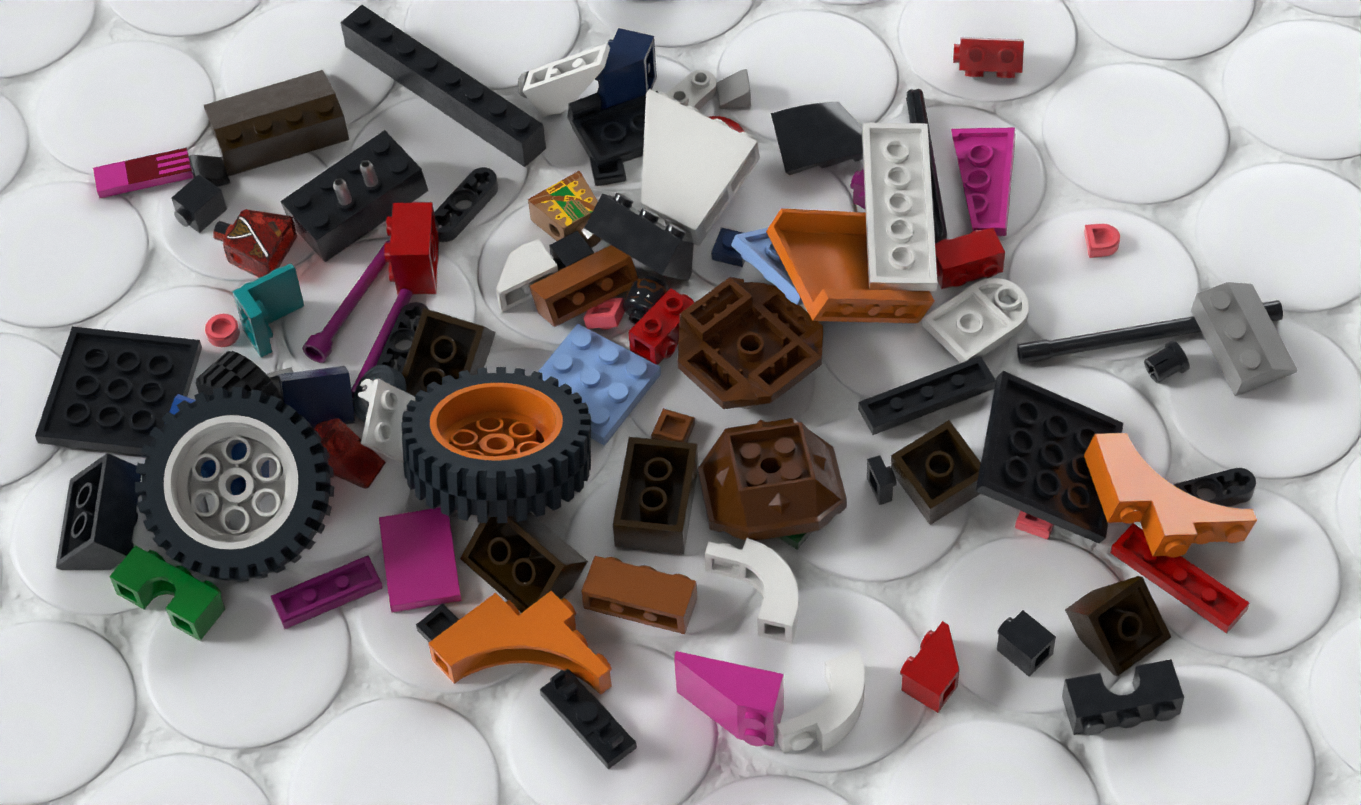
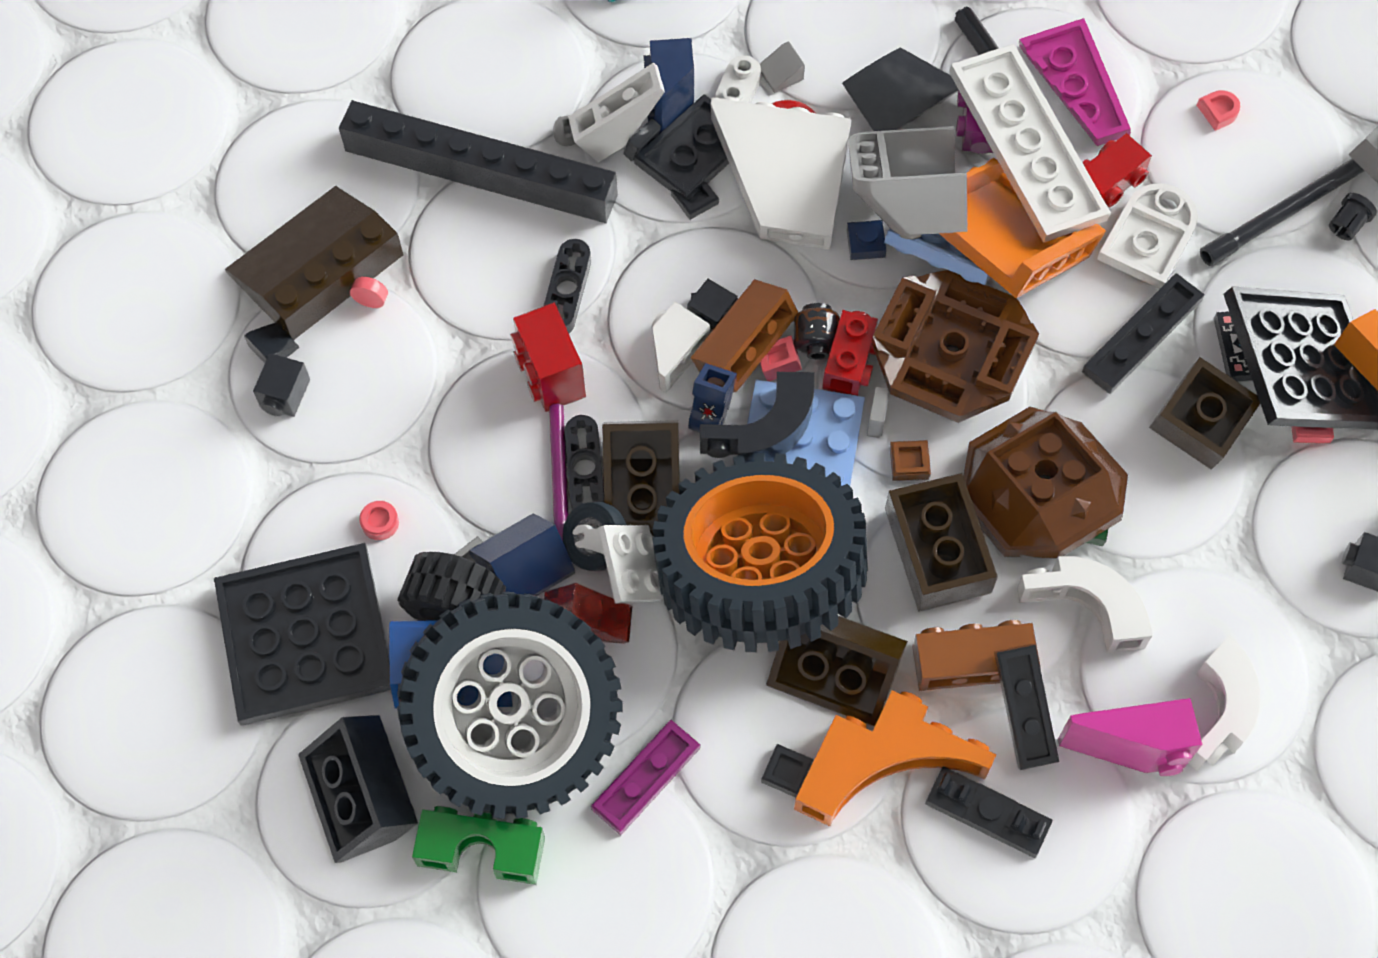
camera: 25 degrees left, 10 degrees up
(142, 172) = (197, 369): tile -> none
(256, 240) = (367, 407): clear red torso -> none
(266, 302) = (414, 480): teal bracket -> none
(303, 156) = (368, 292): none -> coral tile
(319, 345) = (496, 501): magenta piece -> none
(354, 195) = (451, 319): black piece -> none
(419, 559) = (725, 703): dark pink tile -> none
(525, 325) = (711, 400): none -> dark blue leg
(565, 208) = (684, 258): torso -> none
(569, 361) = (775, 431): none -> black arch
(642, 236) = (785, 262): black slope -> none
(657, 644) = (1026, 706): none -> black tile
(663, 381) = (878, 412): none -> light grey tile
(768, 196) = (910, 179): none -> light grey windscreen
(881, 479) = (1147, 441): black plate -> none
(933, 671) = (1306, 625): red slope -> none

